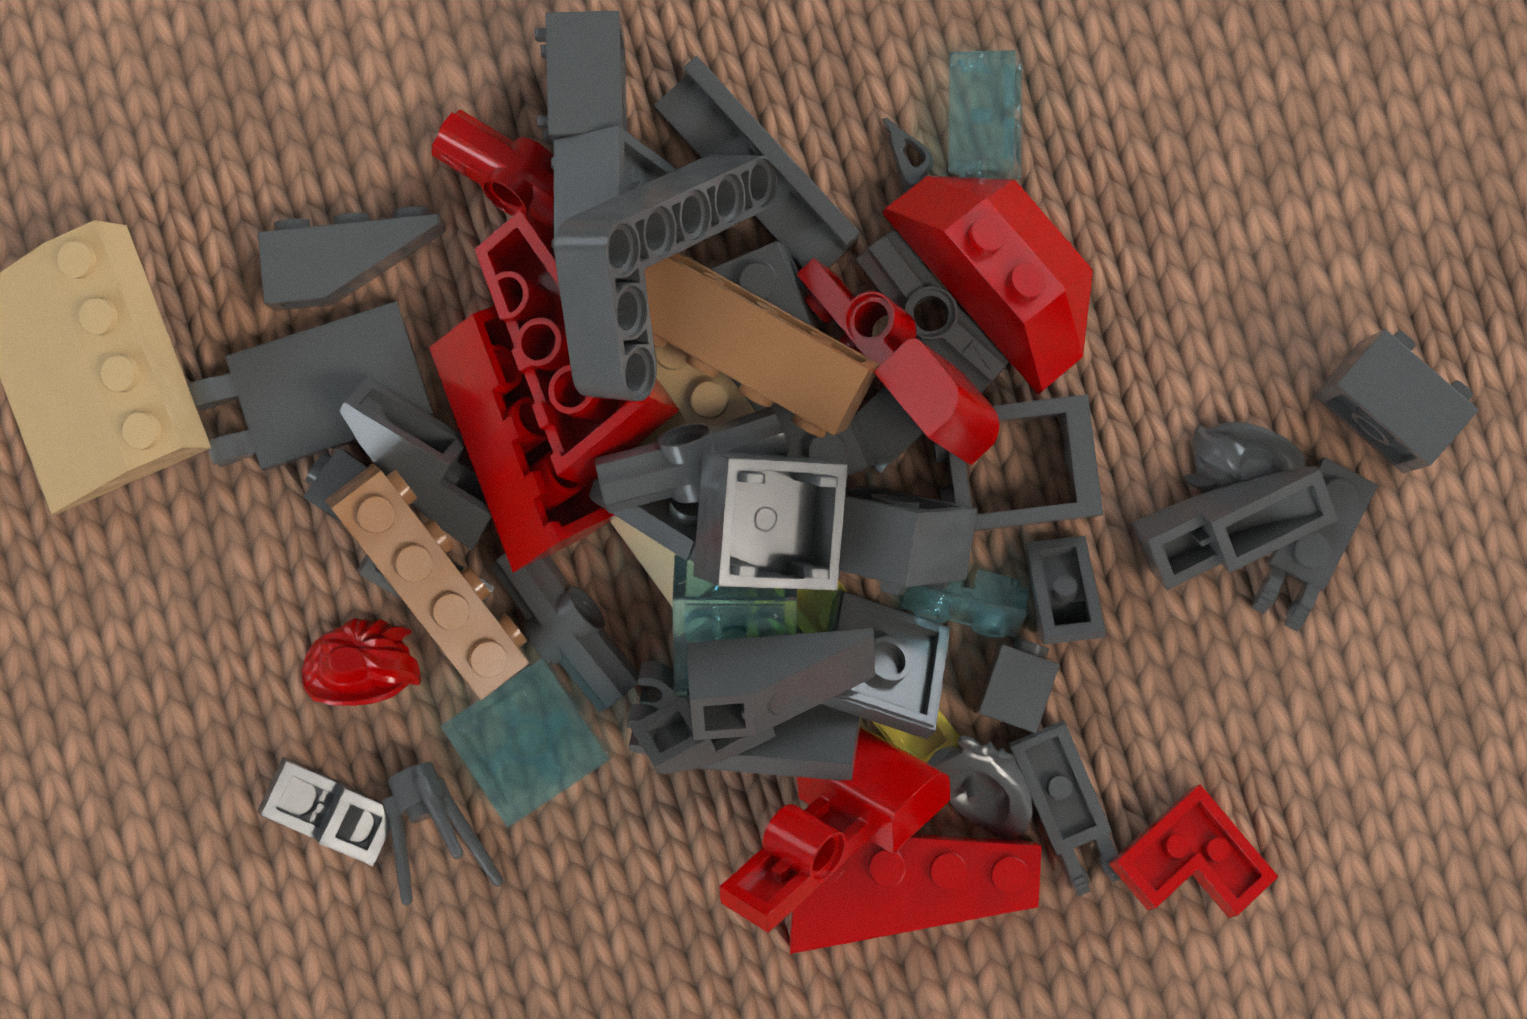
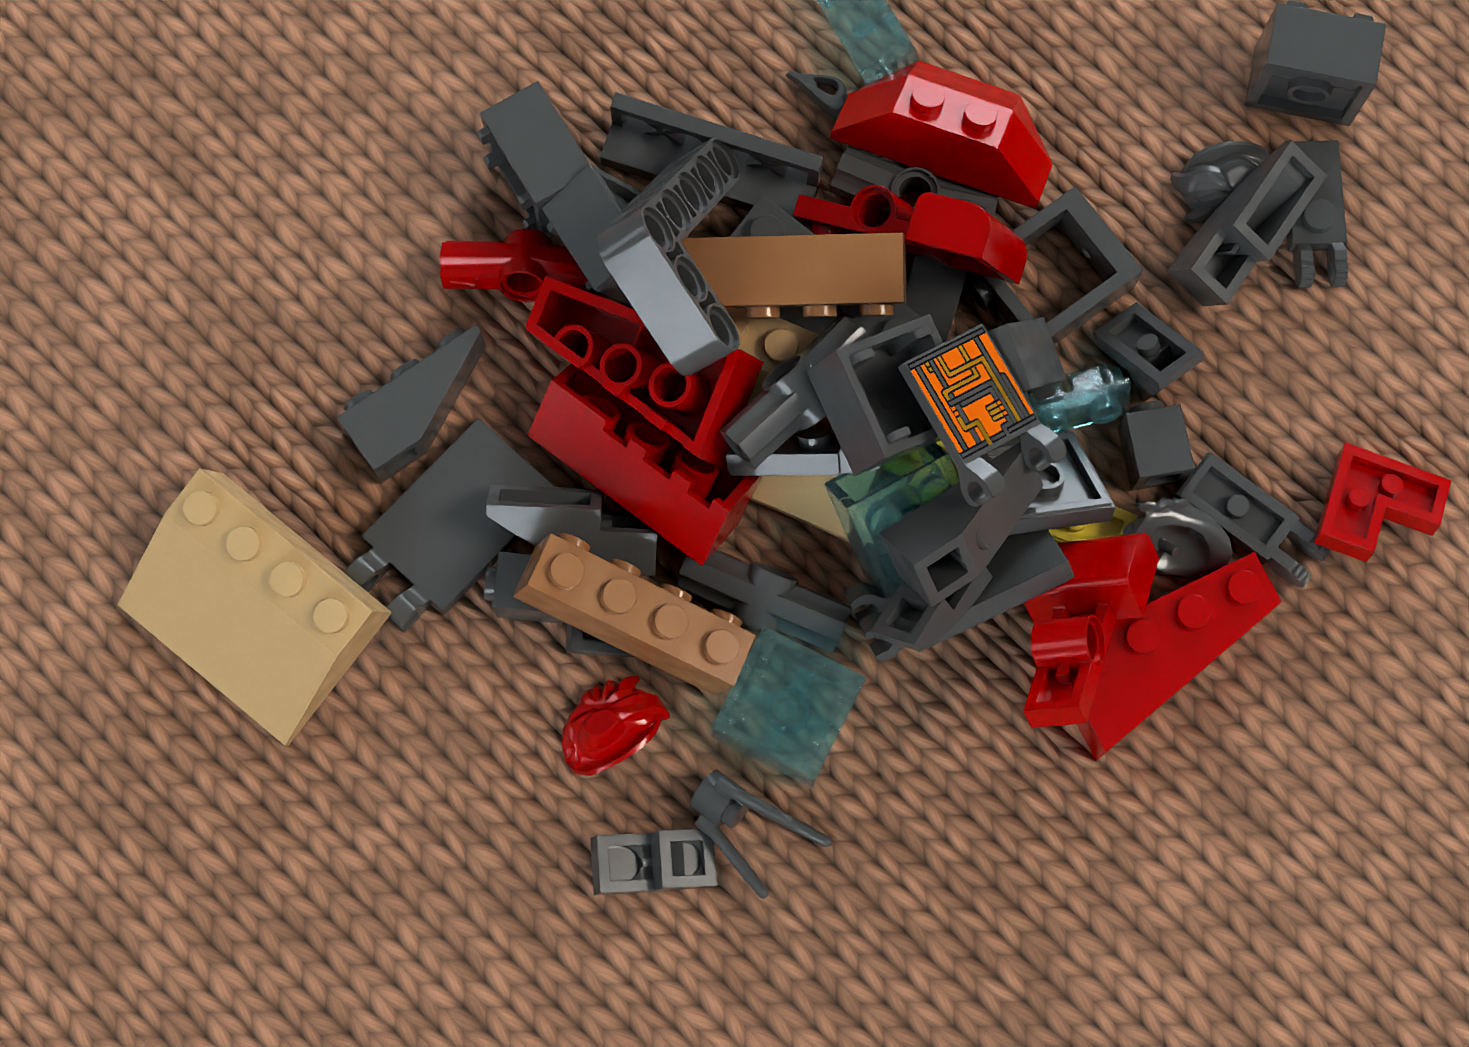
camera: 30 degrees left, 10 degrees down
(838, 577) = (977, 409): none -> flag

